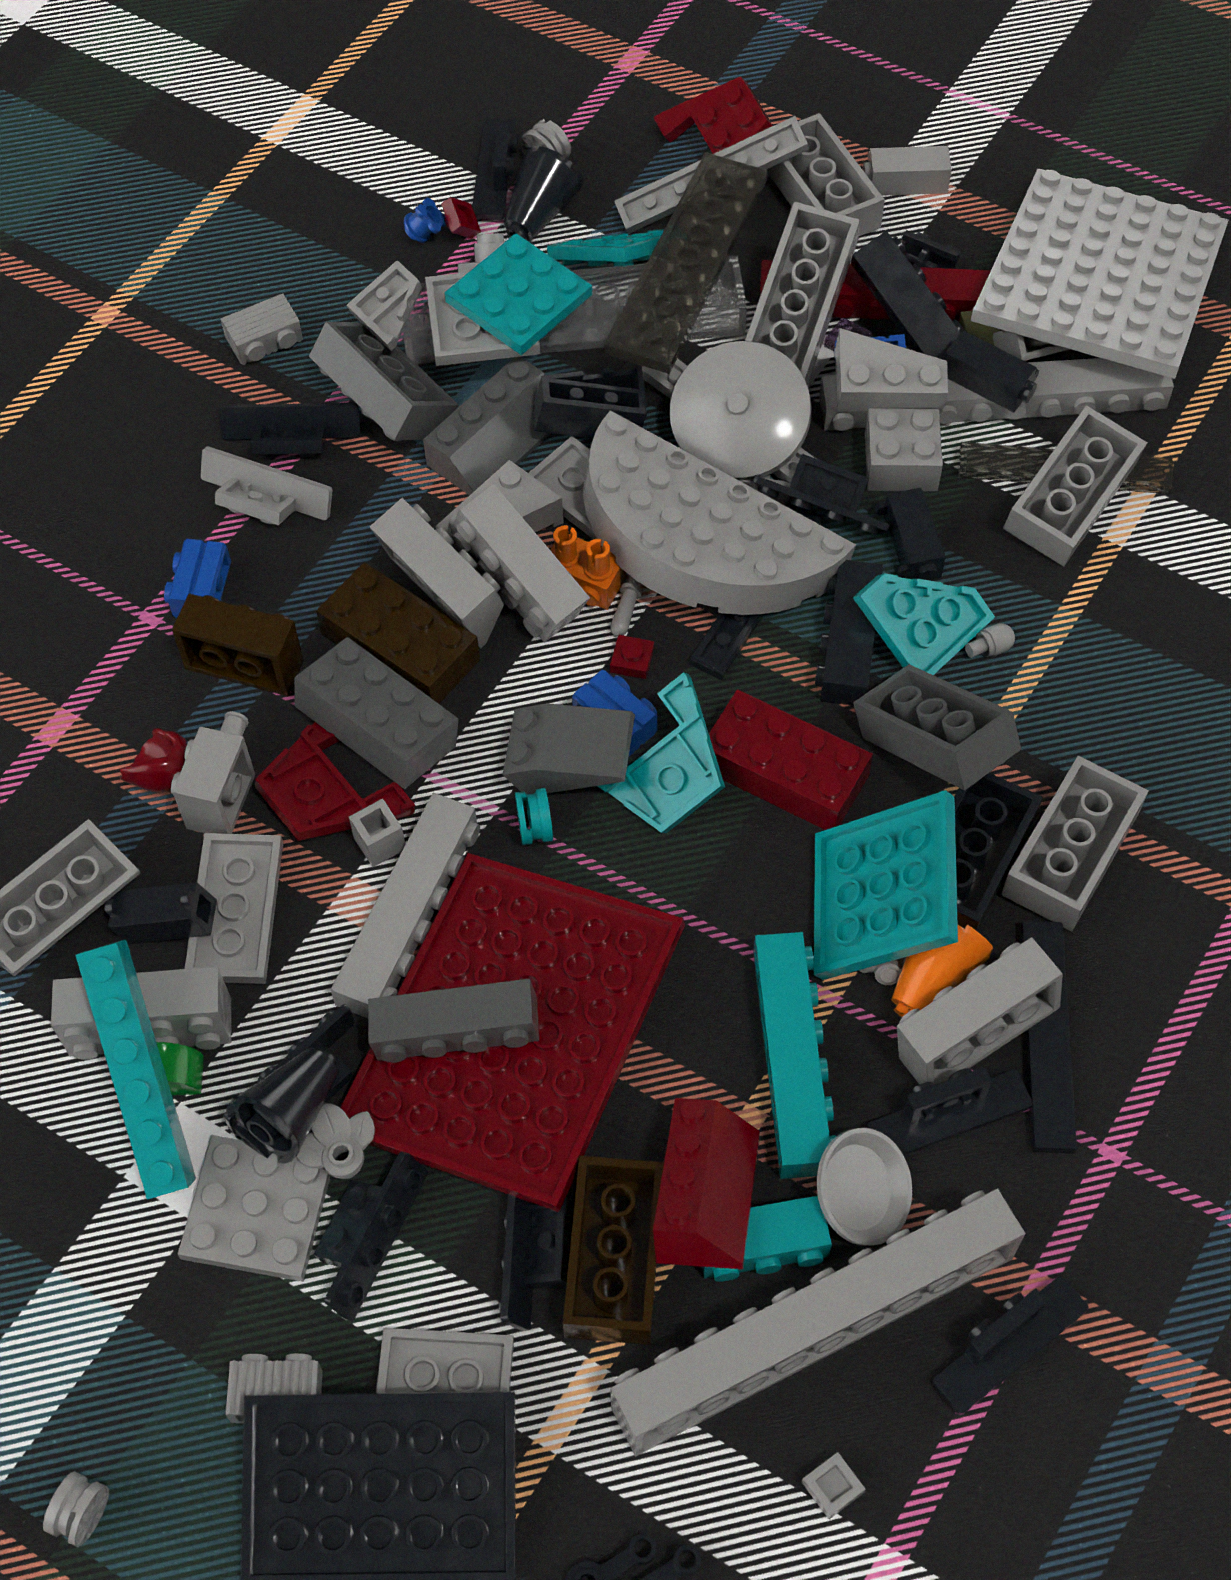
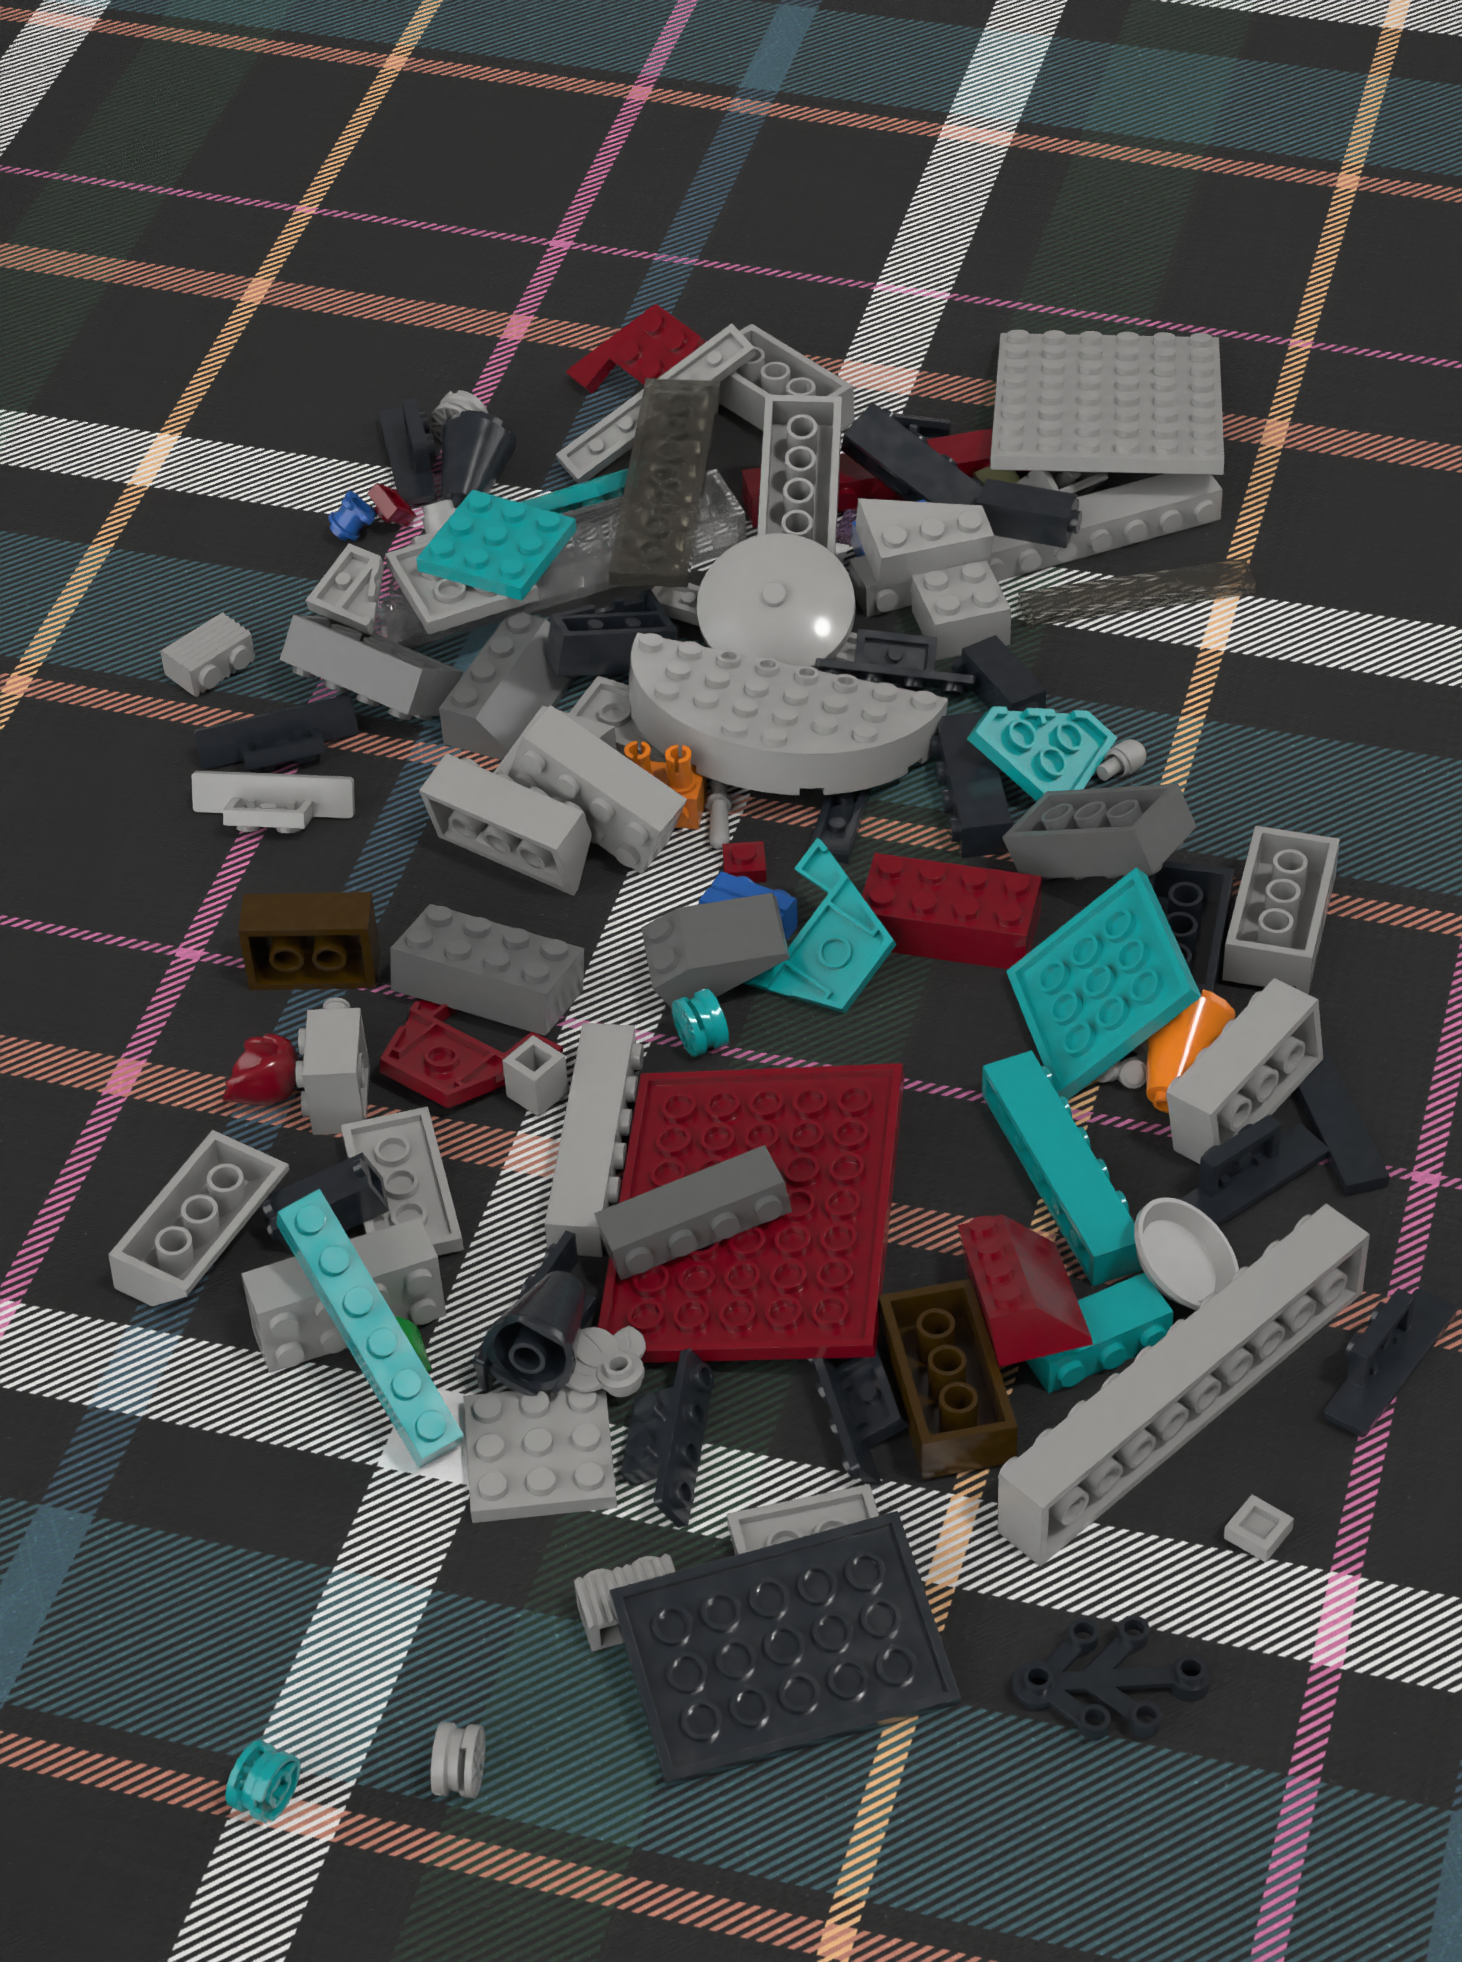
camera: 15 degrees left, 15 degrees down
(199, 571) = (224, 889): blue brick -> none
(400, 631) = (481, 885): dark brown brick -> none
(909, 170) = (868, 359): light grey brick -> none
(1074, 485) = (1155, 598): light grey brick -> none

